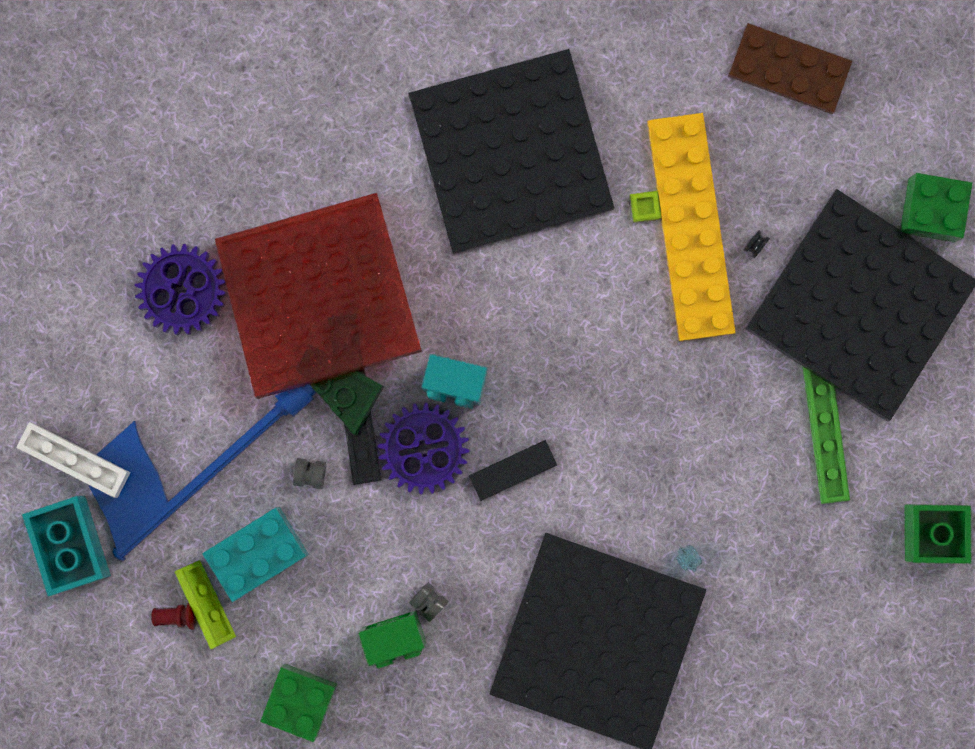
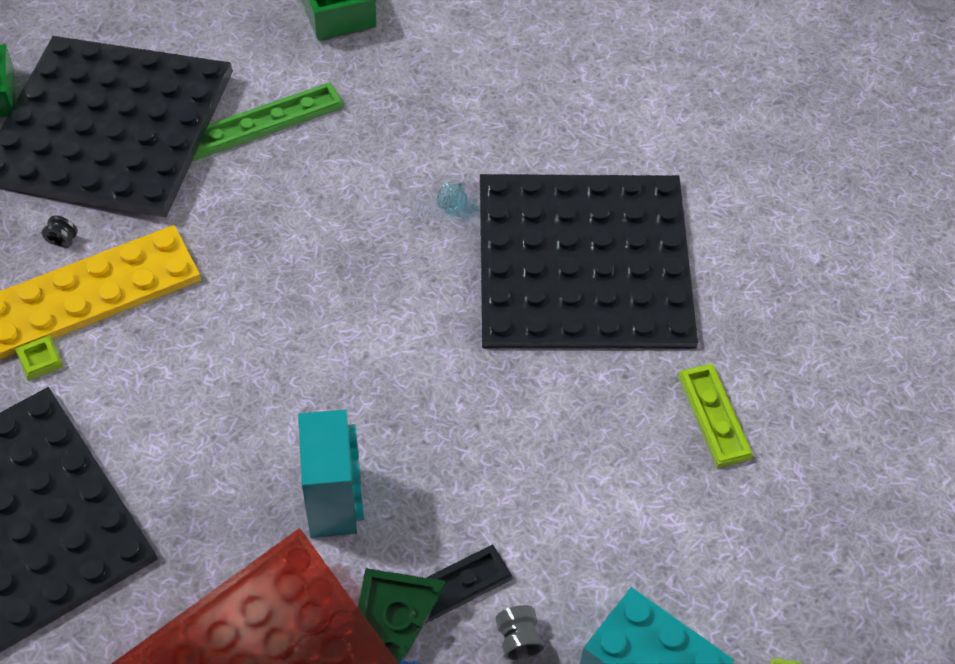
camera: 115 degrees left, 30 degrees down
(298, 702) = (818, 542): green brick -> none
(392, 639) = (684, 451): green brick -> none
(427, 680) = (715, 415): none -> lime tile
(428, 602) = (622, 434): dark grey wheel -> none
(429, 474) = (461, 489): dark purple gear -> none
(513, 470) = (421, 401): black tile -> none

